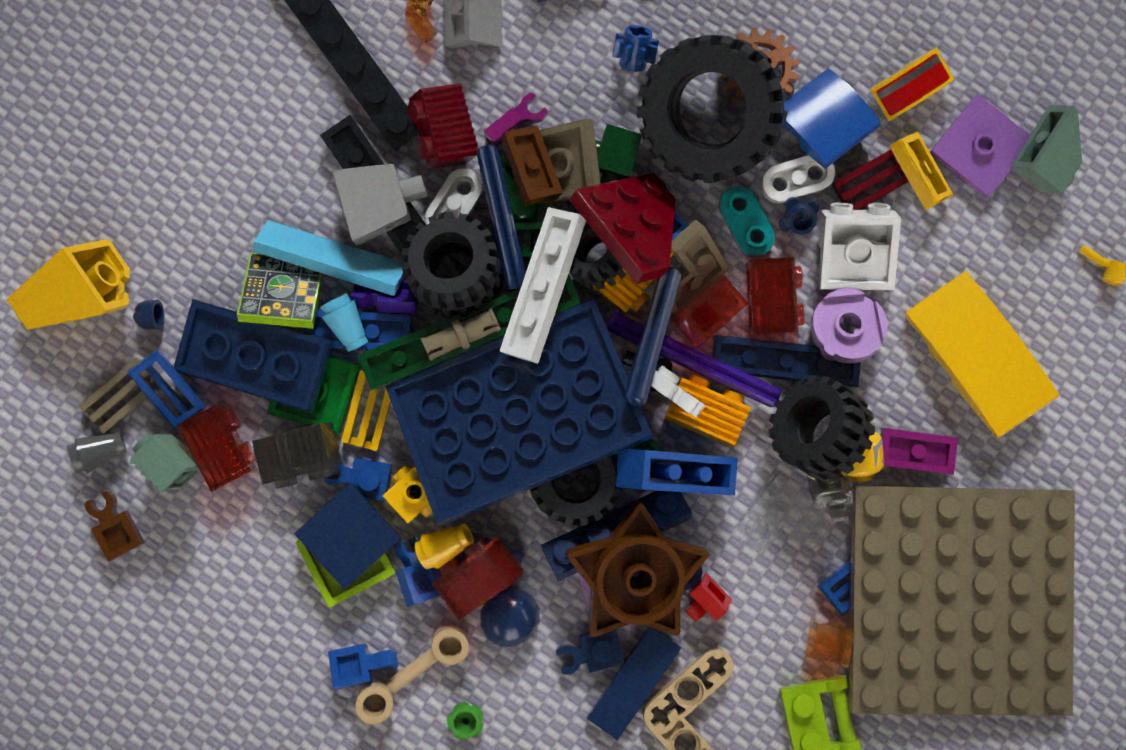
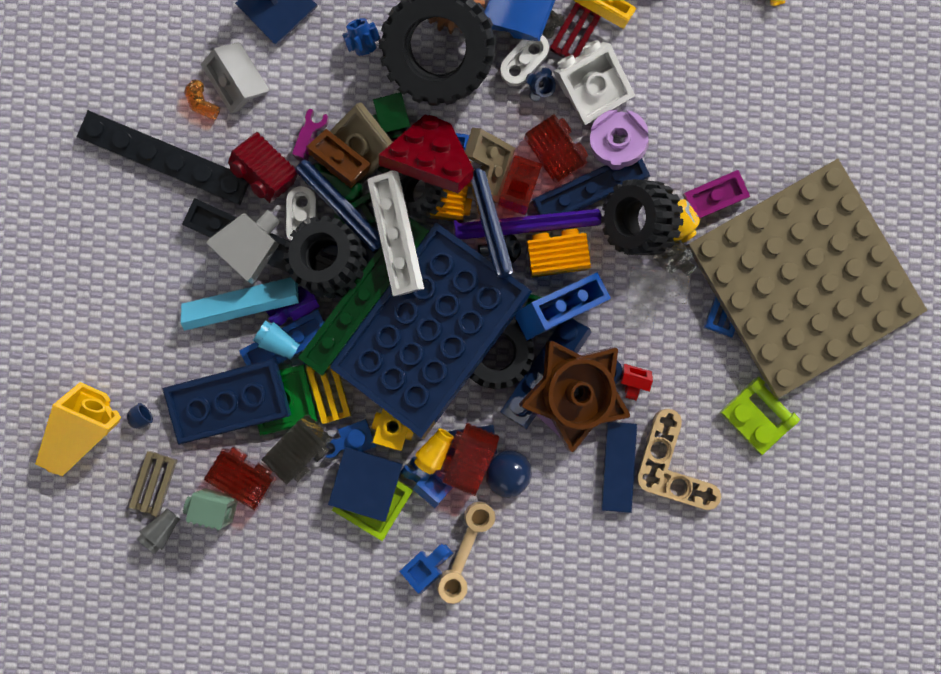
camera: 25 degrees left, 0 degrees up
(116, 532) = (206, 577): reddish brown plate -> none
(146, 364) = (157, 450): blue tile -> none
(279, 293) = (219, 348): tile -> none
(460, 334) = (359, 300): dark tan pin -> none
(462, 730) = (524, 569): bright green plate -> none
(597, 652) = (581, 462): dark blue plate -> none
(665, 383) = (518, 250): white plate -> none
(745, 221) = (506, 110): teal plate -> none
(829, 642) = (734, 359): clear orange panel -> none
(982, 354) = (720, 103): yellow slope -> none

